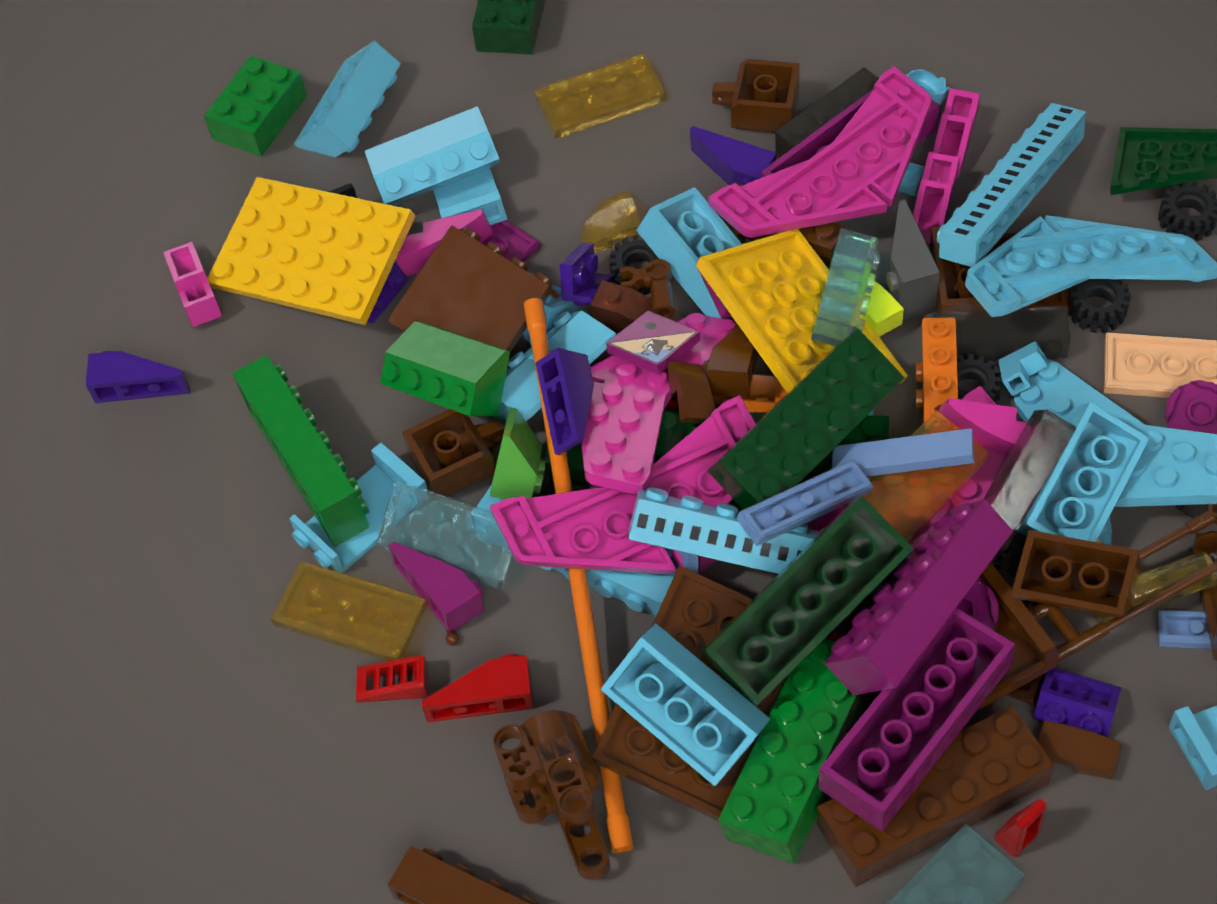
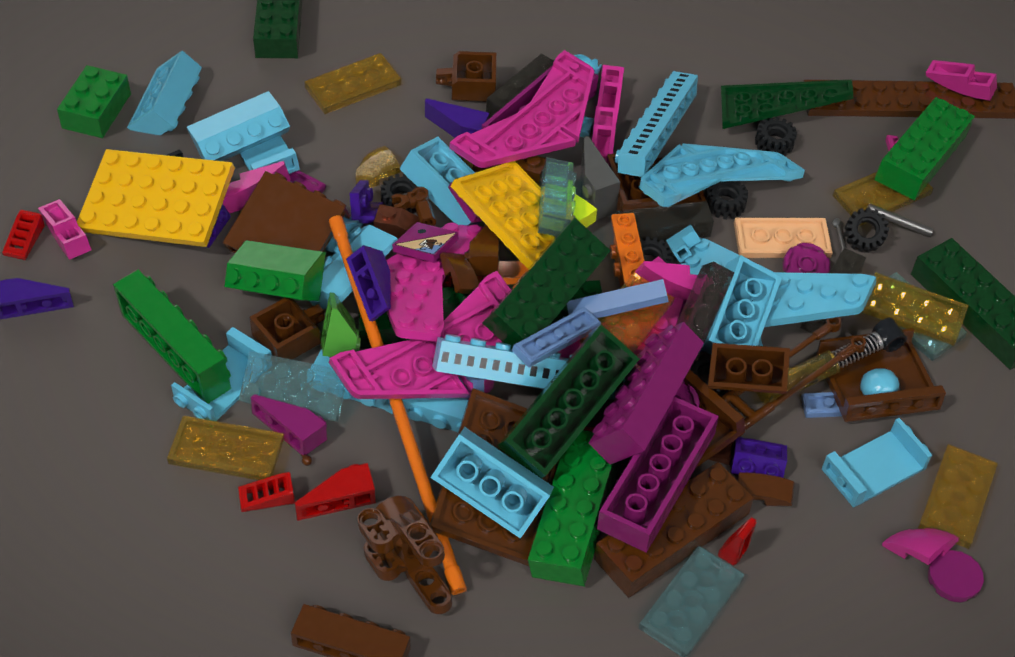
camera: 20 degrees left, 5 degrees down
(143, 270) = (24, 221): none -> red slope

